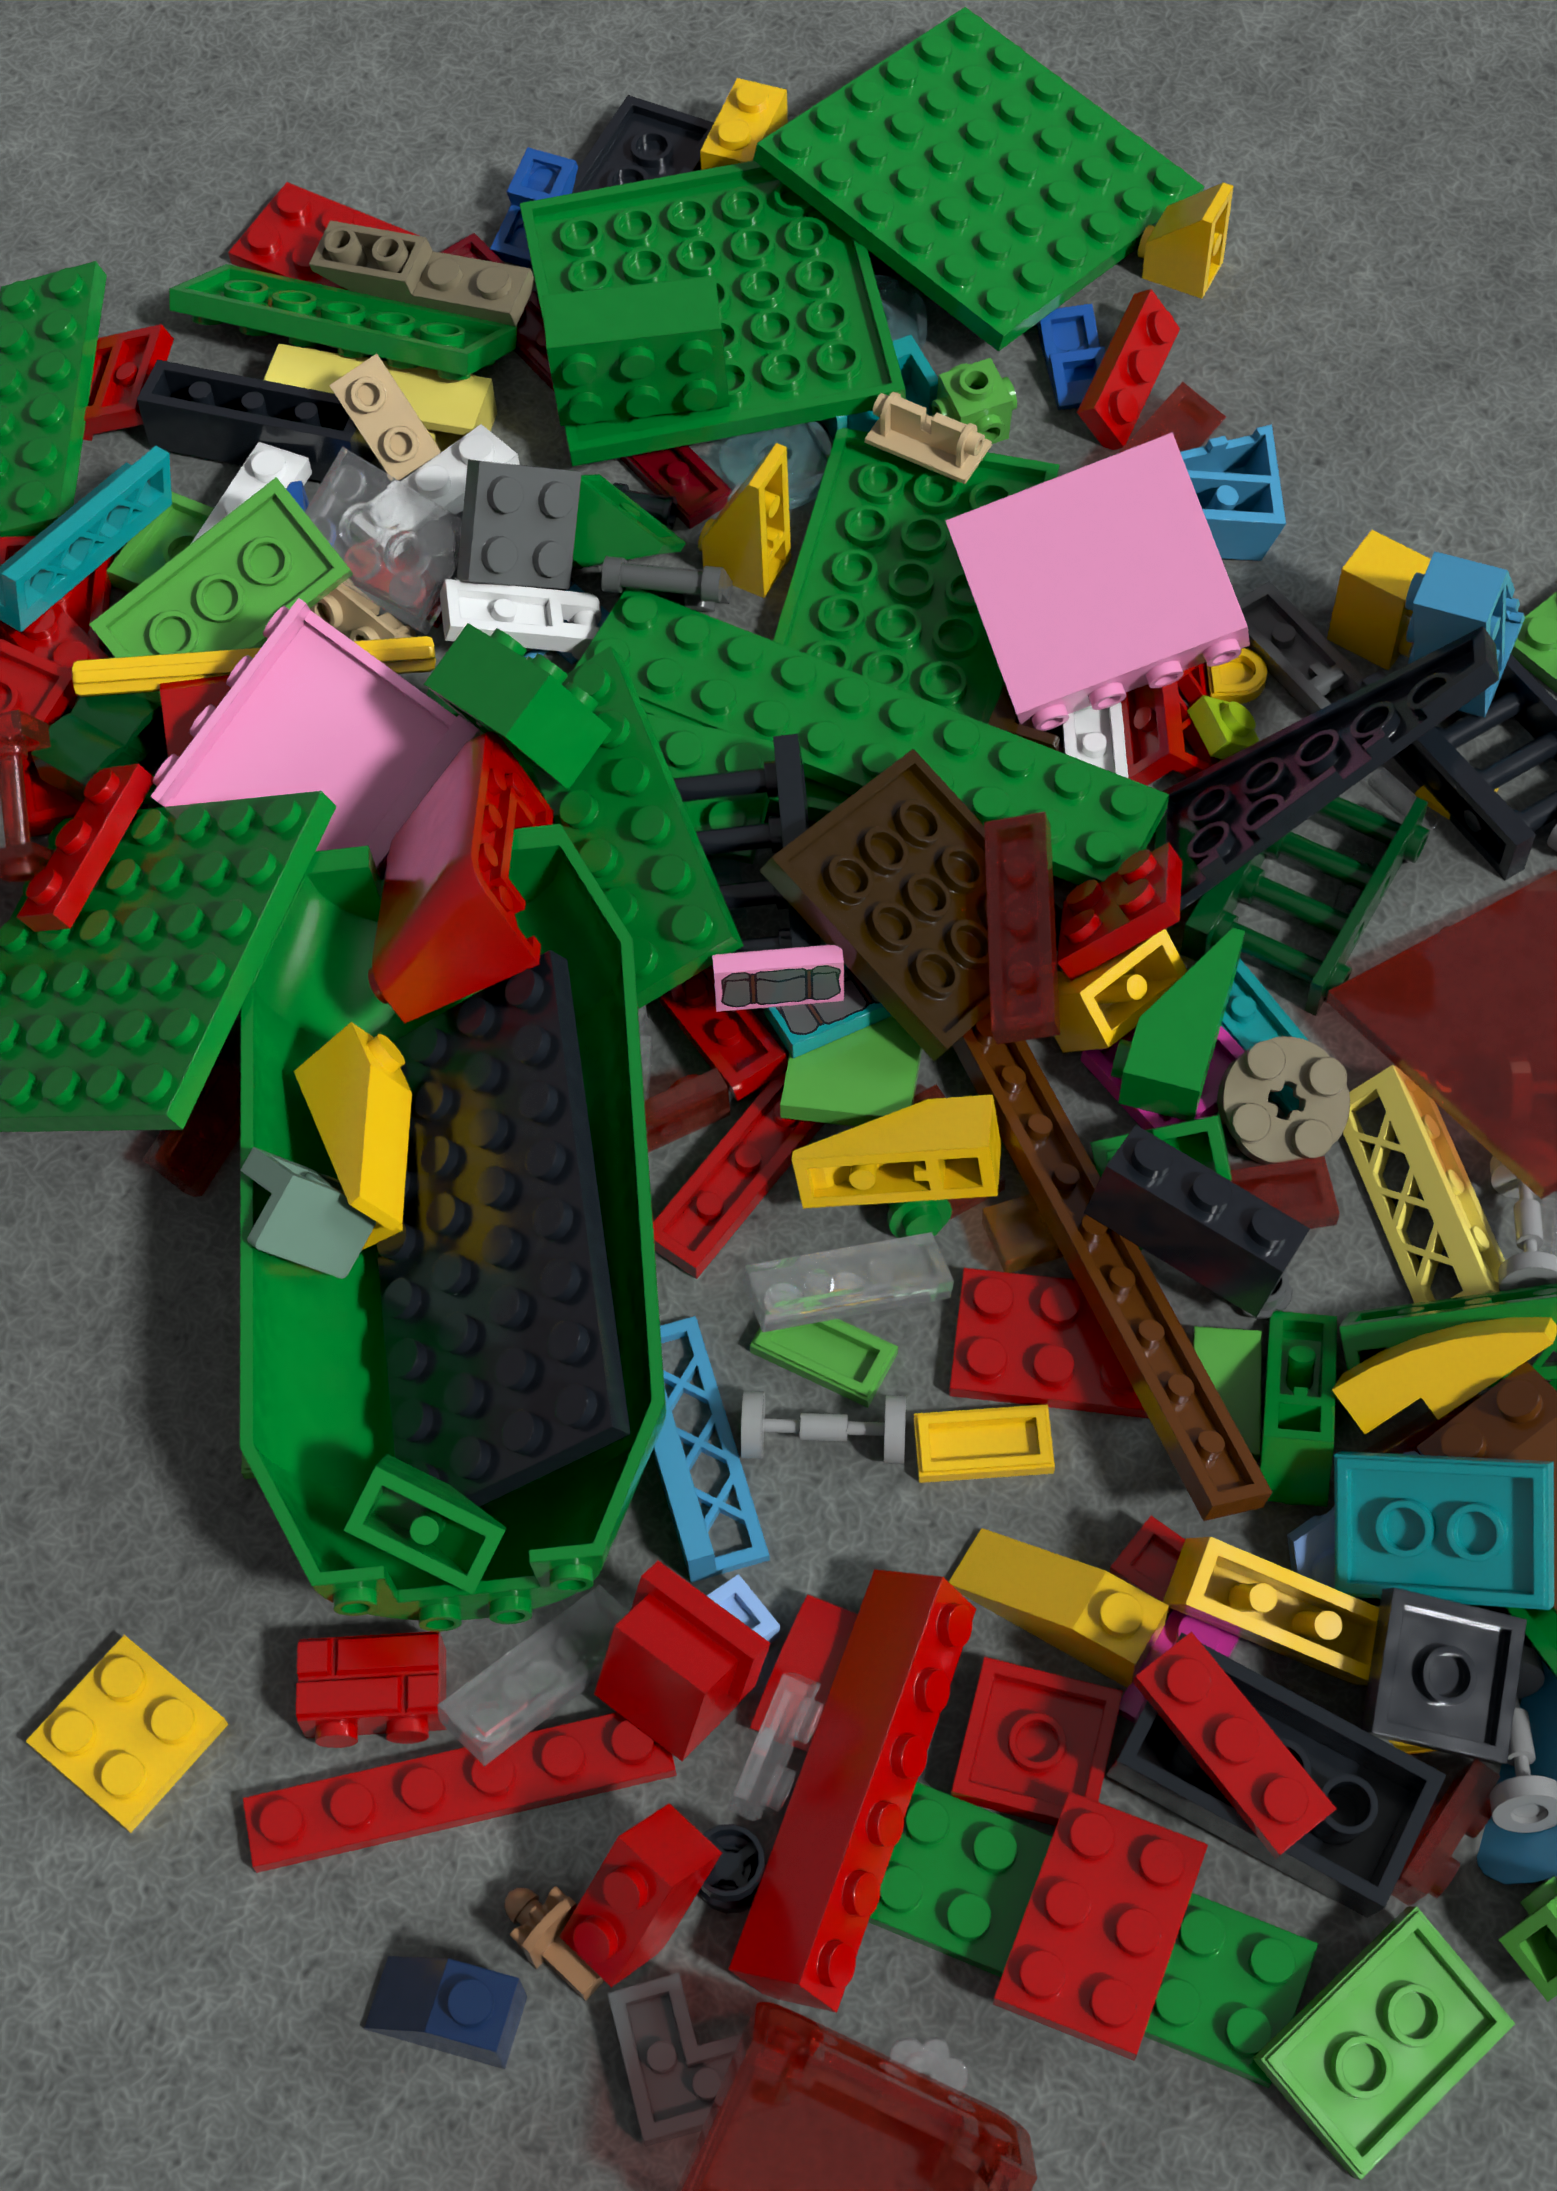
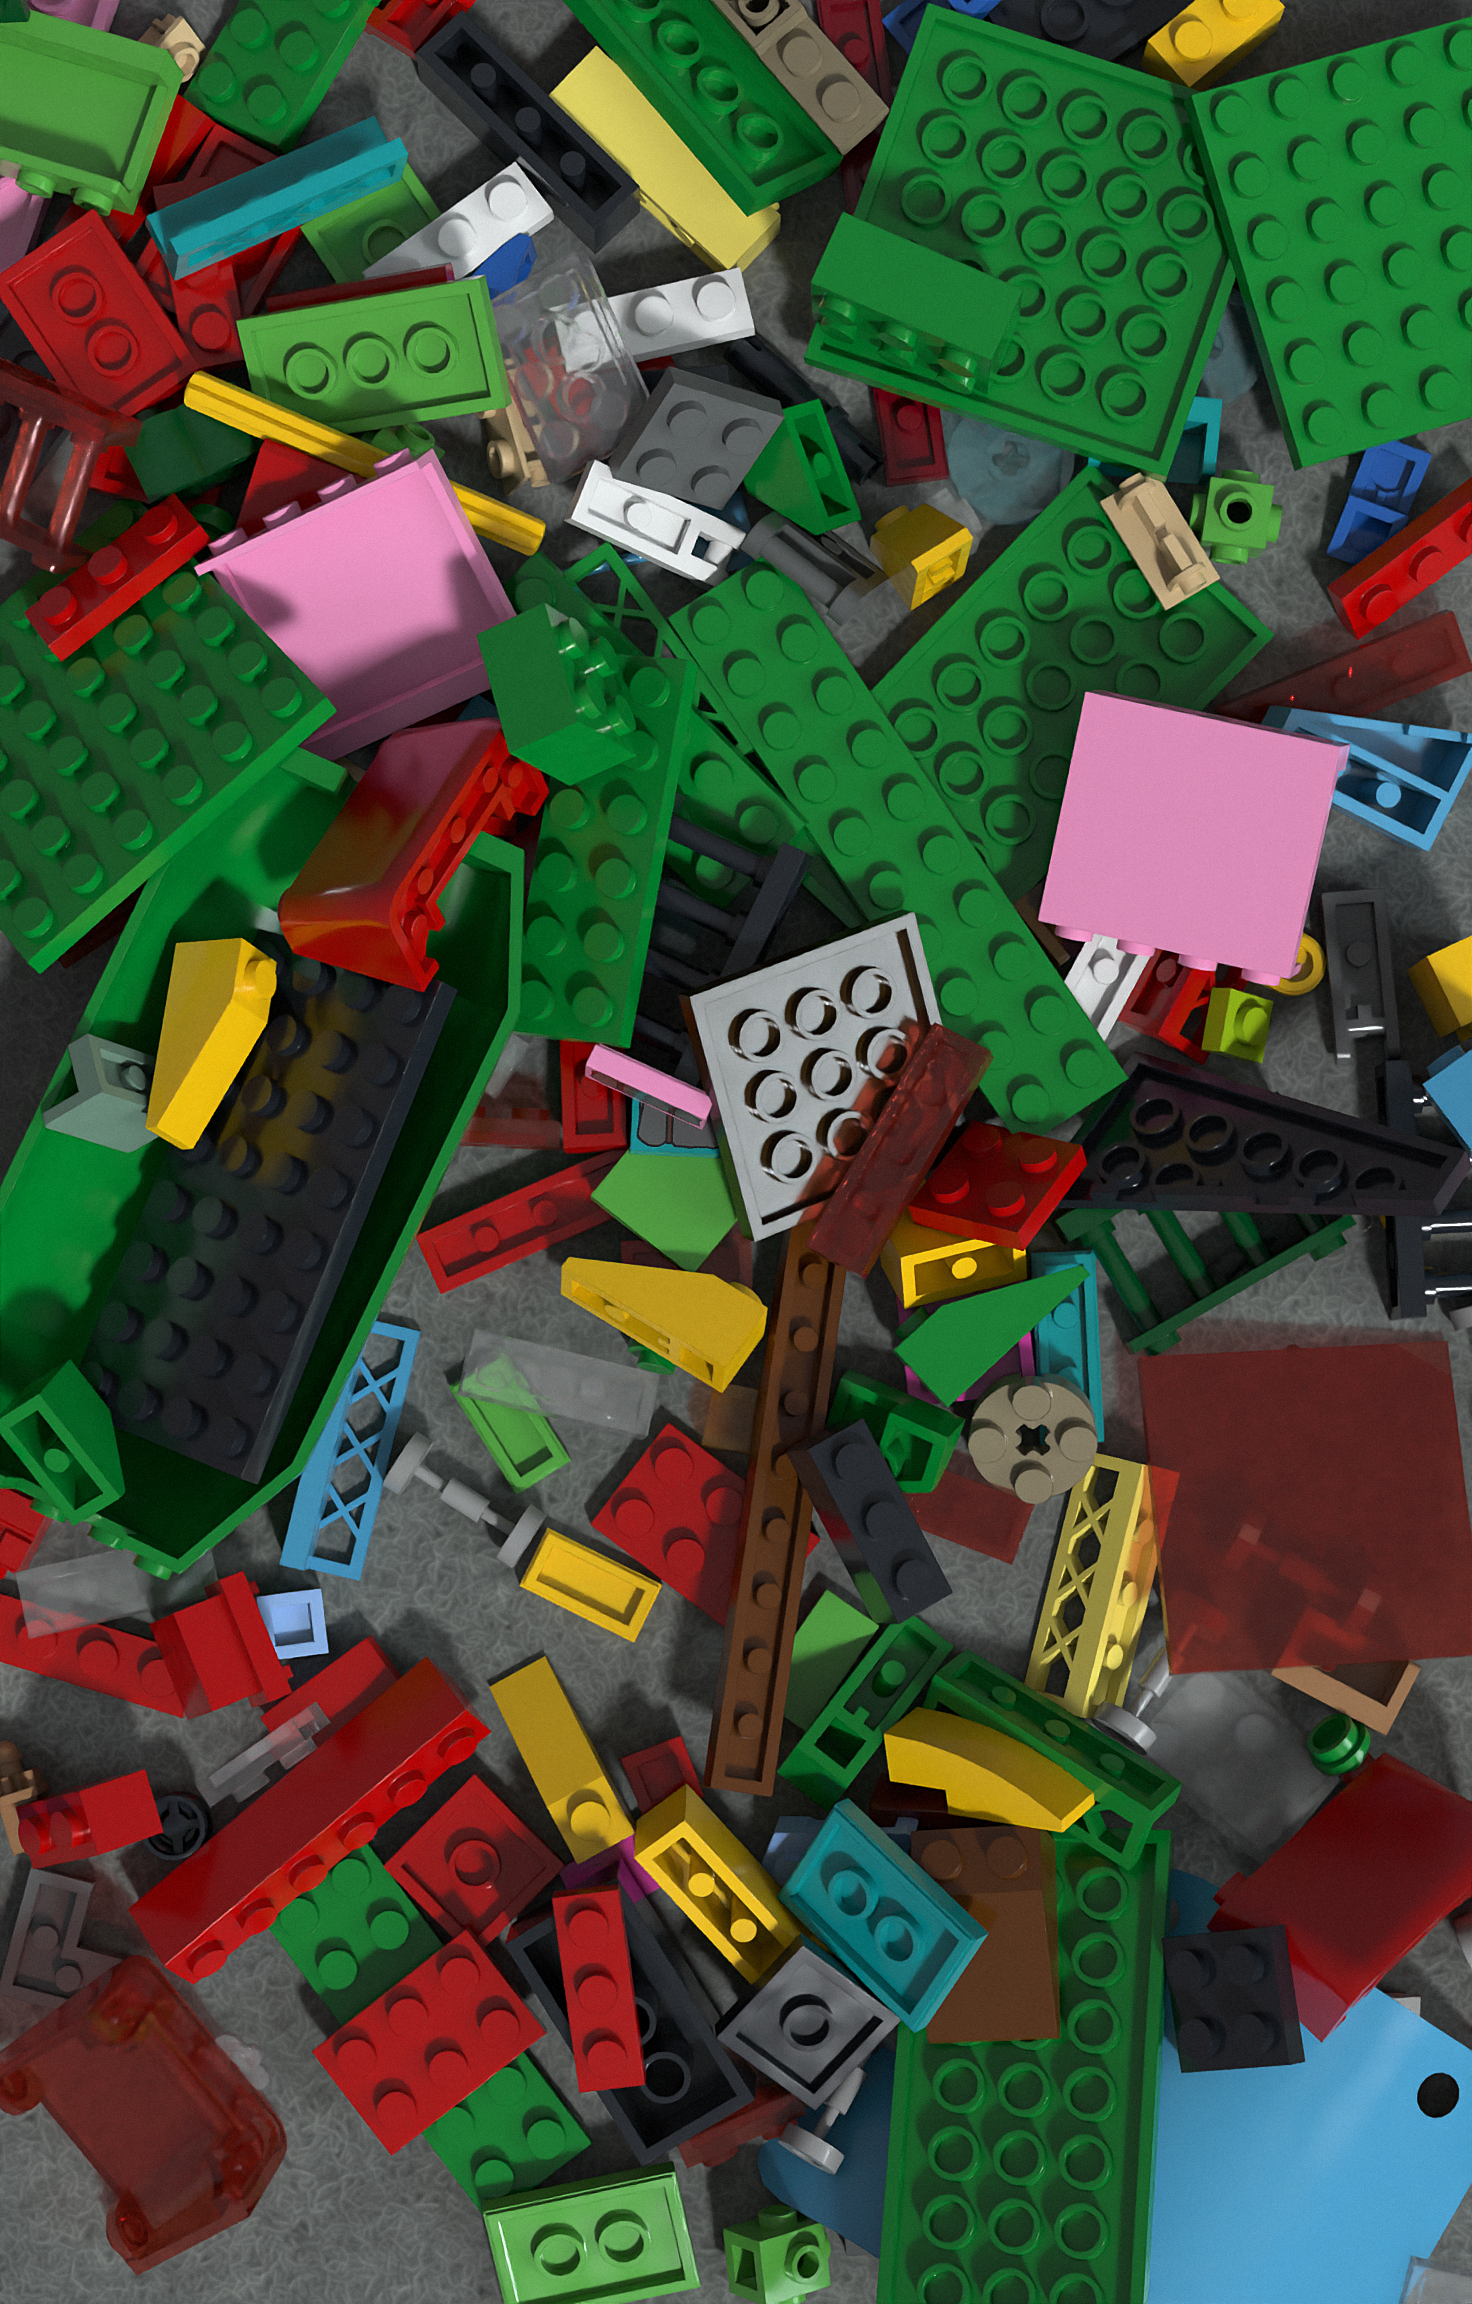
camera: 30 degrees right, 25 degrees up
(385, 418) = (641, 220): tan hinge -> none

